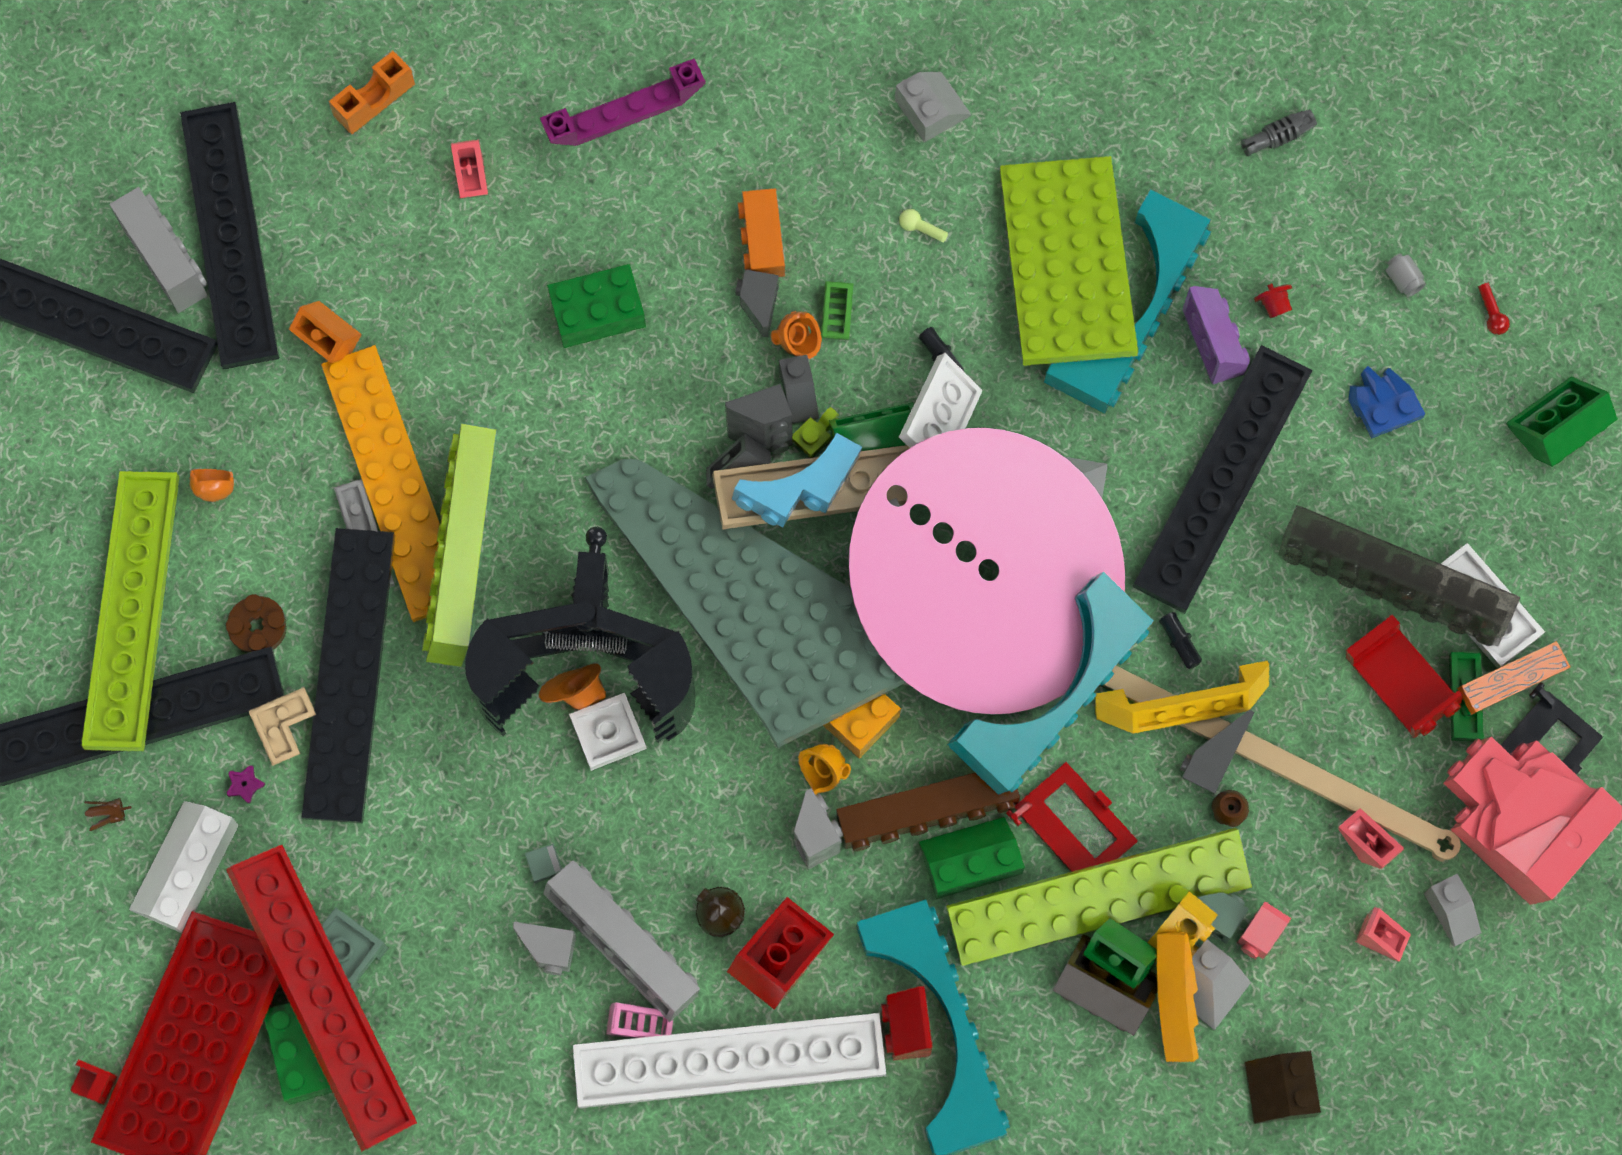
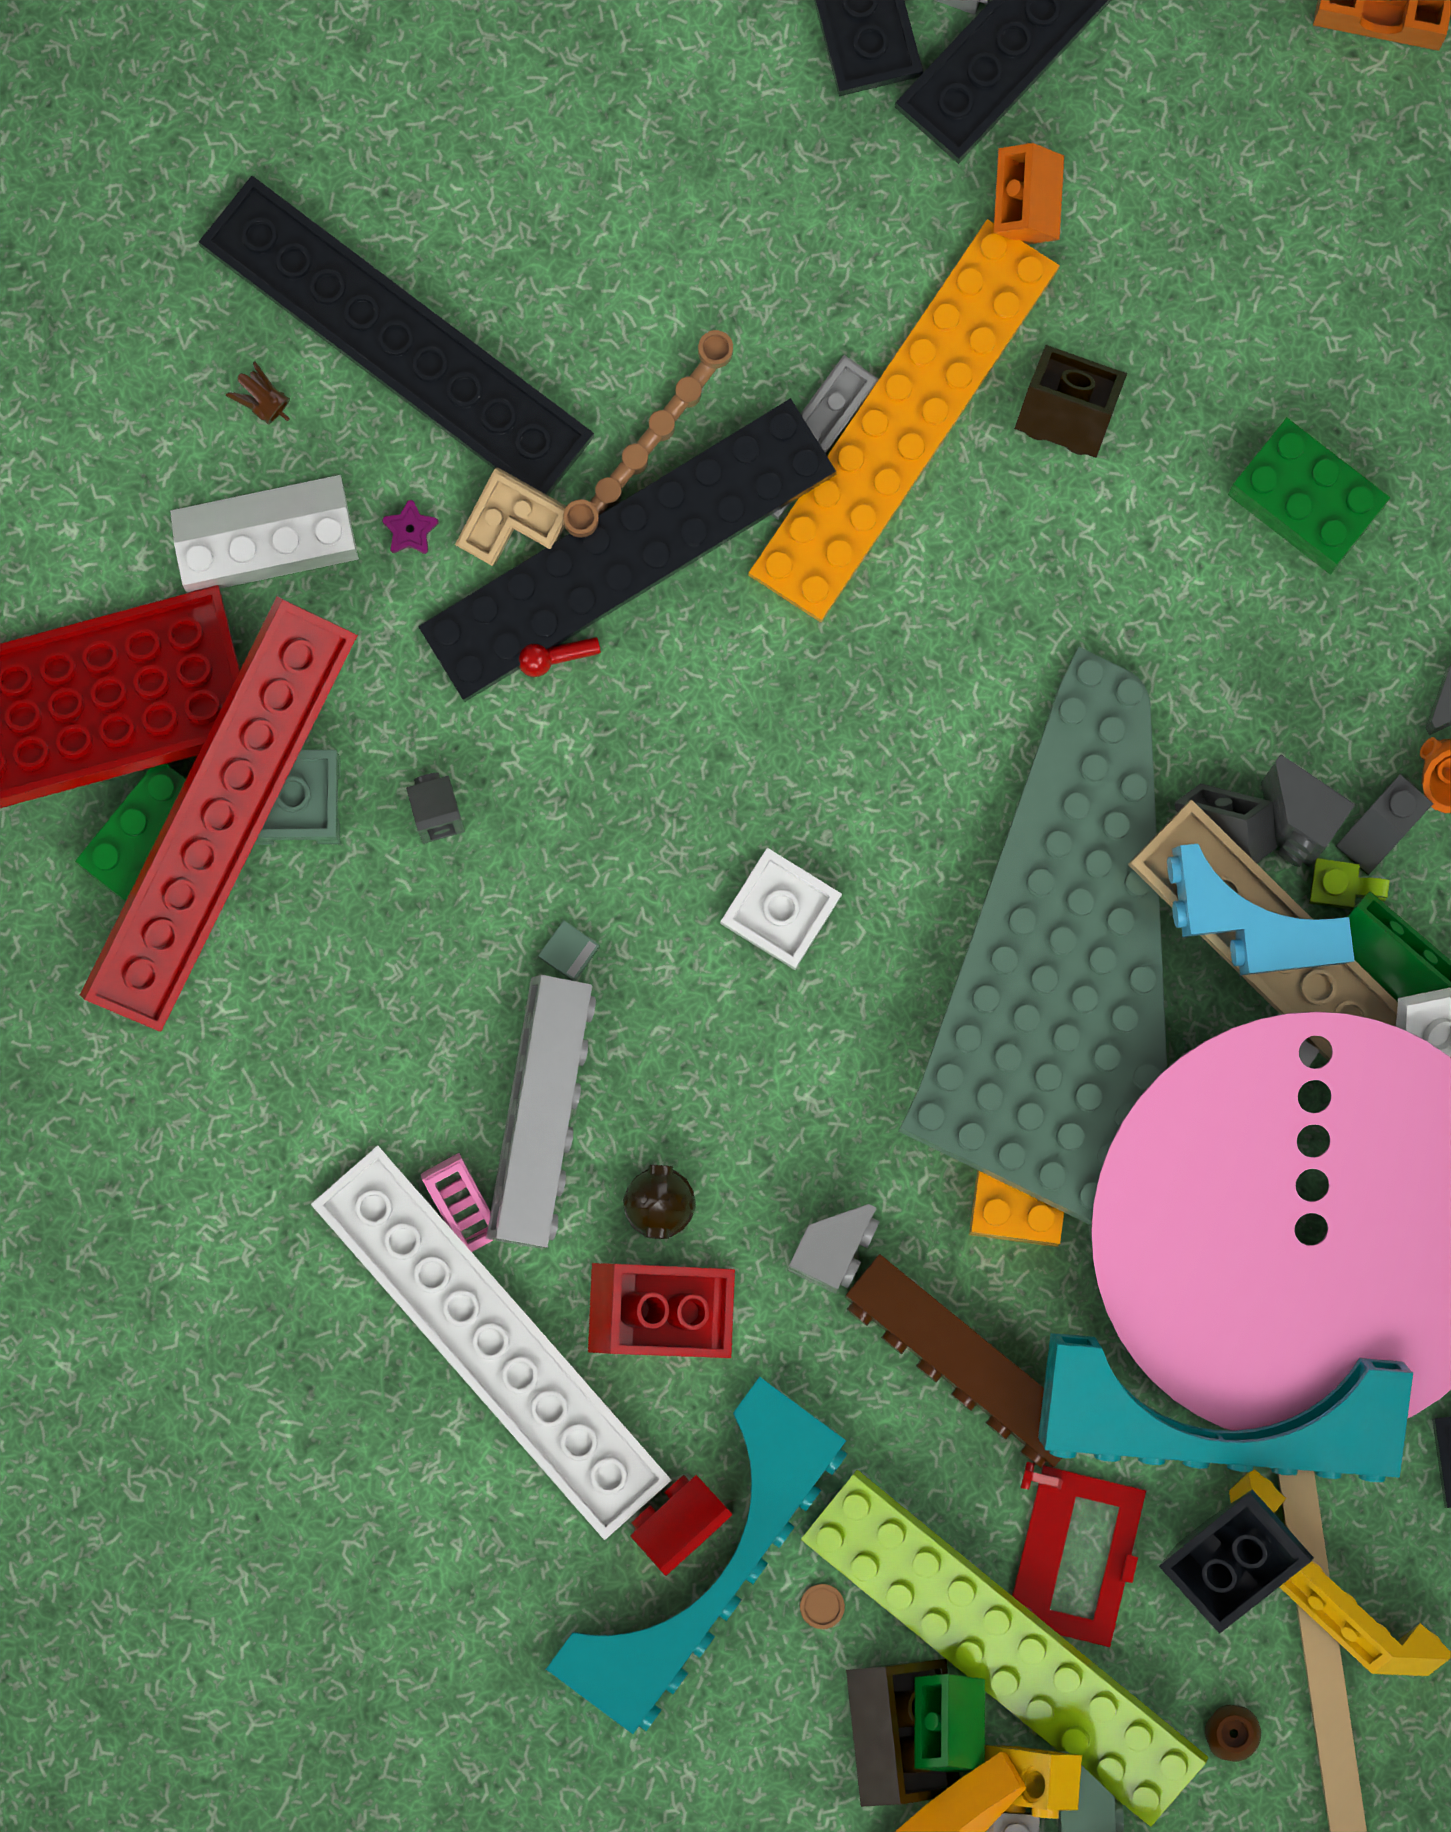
camera: 55 degrees right, 10 degrees up
(131, 612) = (517, 235): lime plate -> none
(211, 484) = (740, 207): orange hair -> none
(251, 609) = (626, 375): reddish brown plate -> none
(312, 680) = (580, 515): none -> medium nougat bar
(371, 765) = (537, 660): none -> red bar
(409, 877) = (434, 807): none -> dark grey slope
(452, 390) = (1070, 401): none -> dark brown slope
(459, 545) = (872, 567): lime brick -> none
(469, 168) = (1373, 205): coral slope -> none
(548, 946) = (471, 1030): light grey slope -> none
(576, 687) = (805, 829): orange piece -> none
(658, 655) = (744, 737): black piece -> none
(825, 767) = (921, 1202): light orange helmet -> none
(971, 857) = (942, 1457): green slope -> none
(1007, 981) = (822, 1606): none -> medium nougat piece
(1138, 734) = (1235, 1560): none -> black slope
(1180, 640) = (1404, 1527): black axle -> none
(1213, 758) = (1279, 1670): dark grey slope -> none

